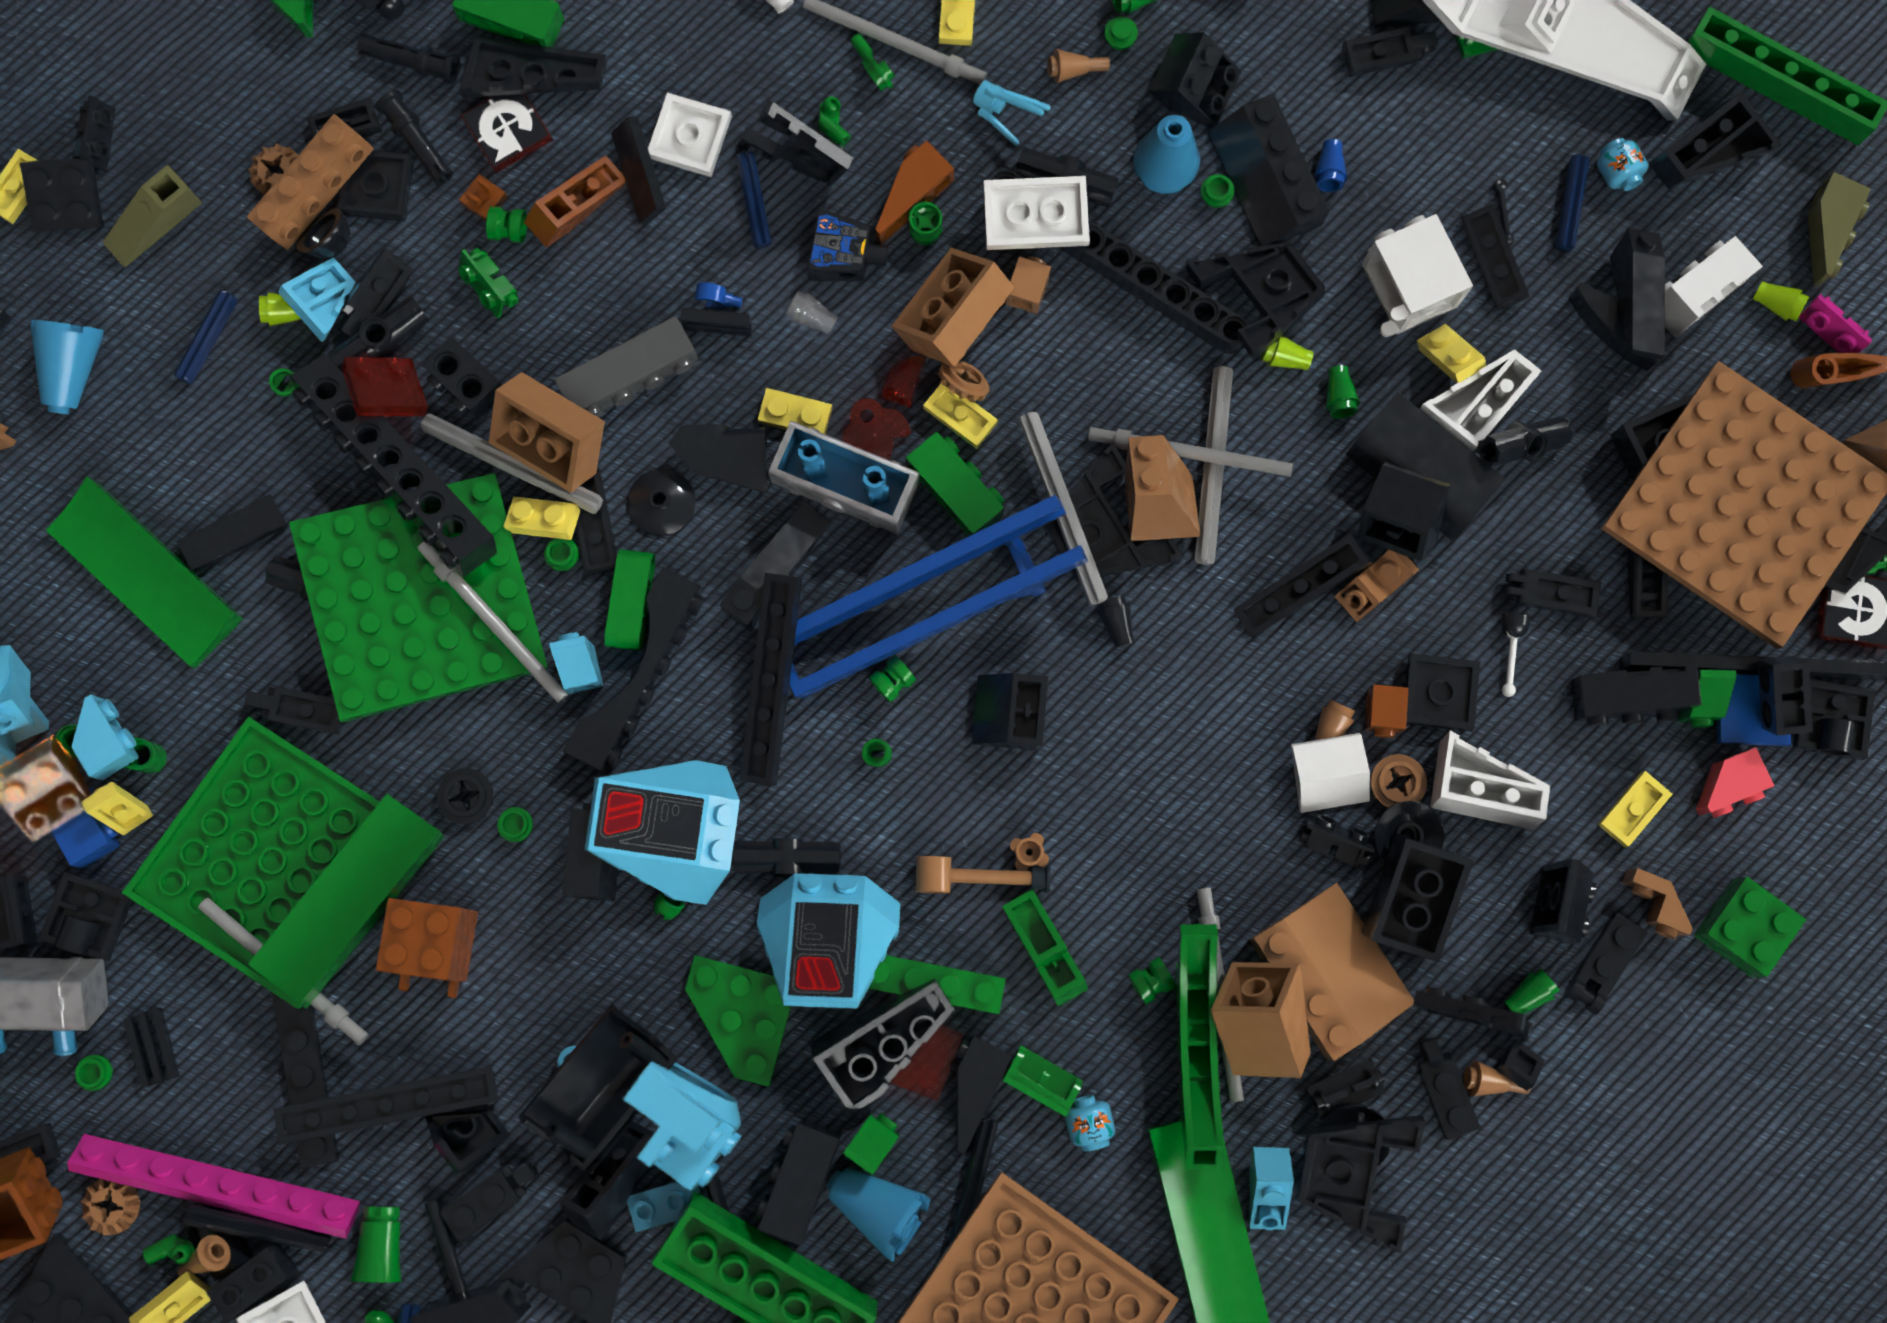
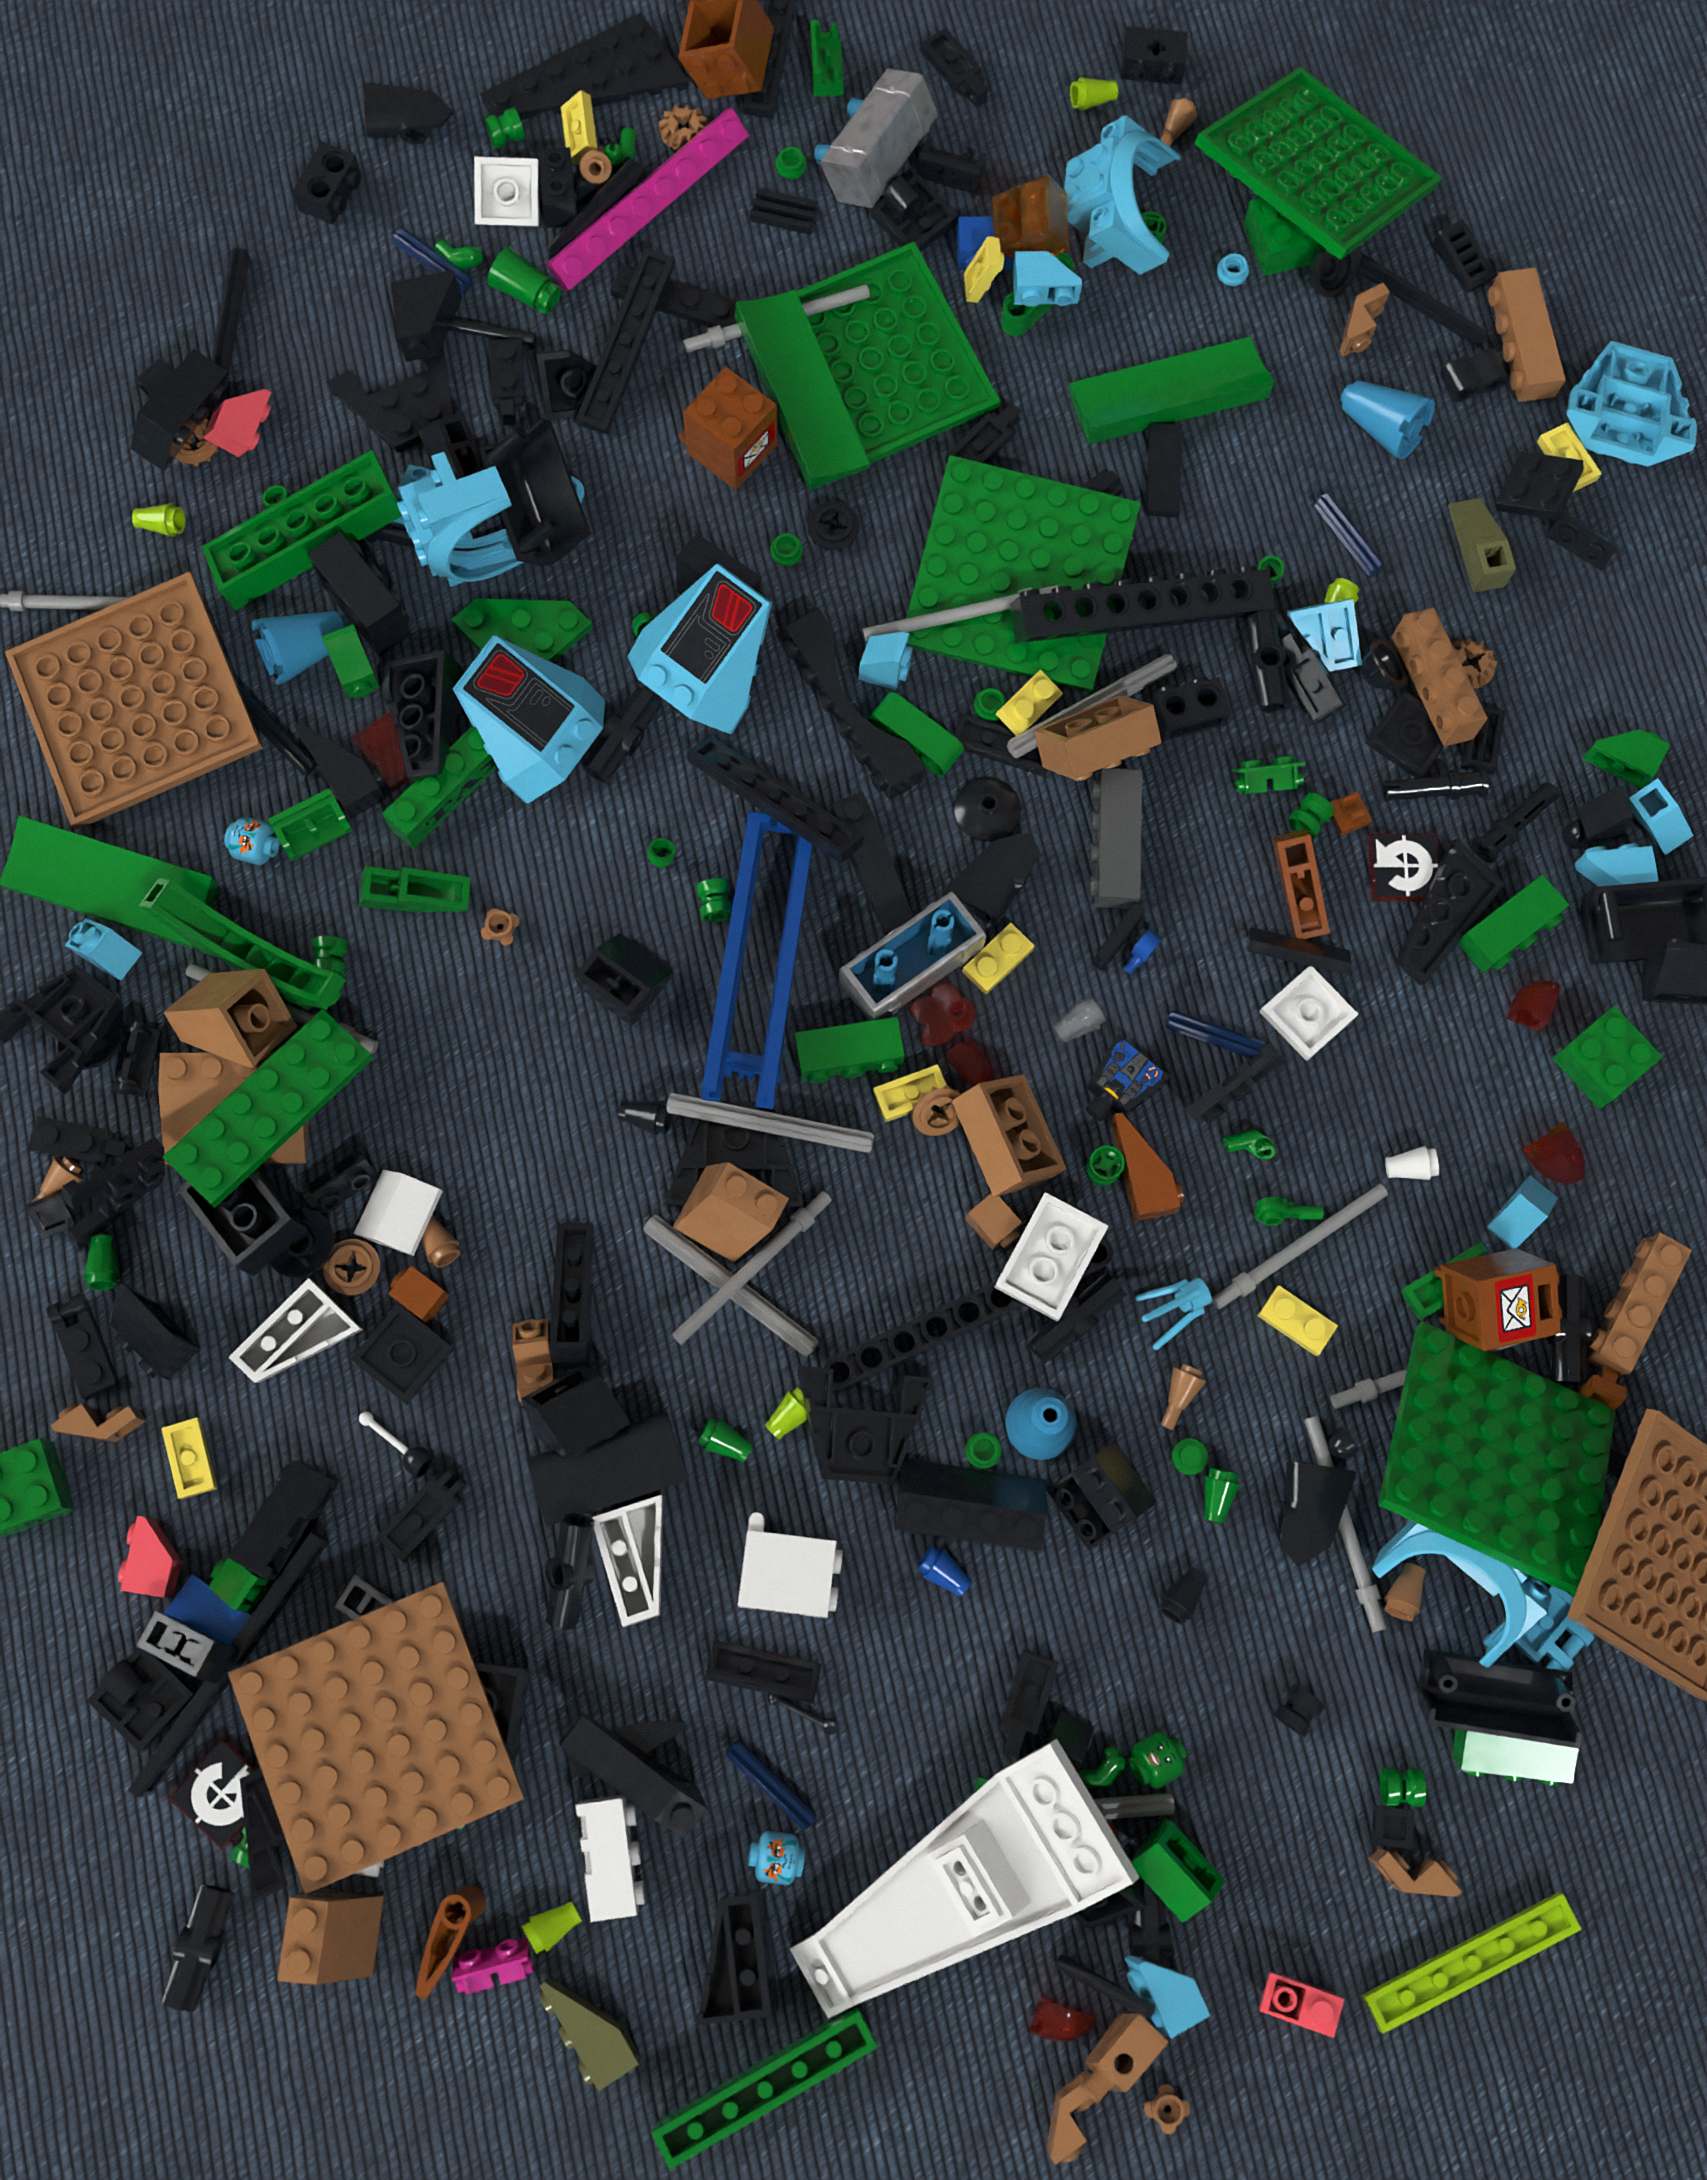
camera: 115 degrees right, 5 degrees down
(384, 386) = (1216, 637): clear red plate -> none
(936, 875) = (530, 840): medium nougat piece -> none
(1325, 926) = (268, 1108): none -> green plate
(1451, 353) = (695, 1561): light yellow plate -> none

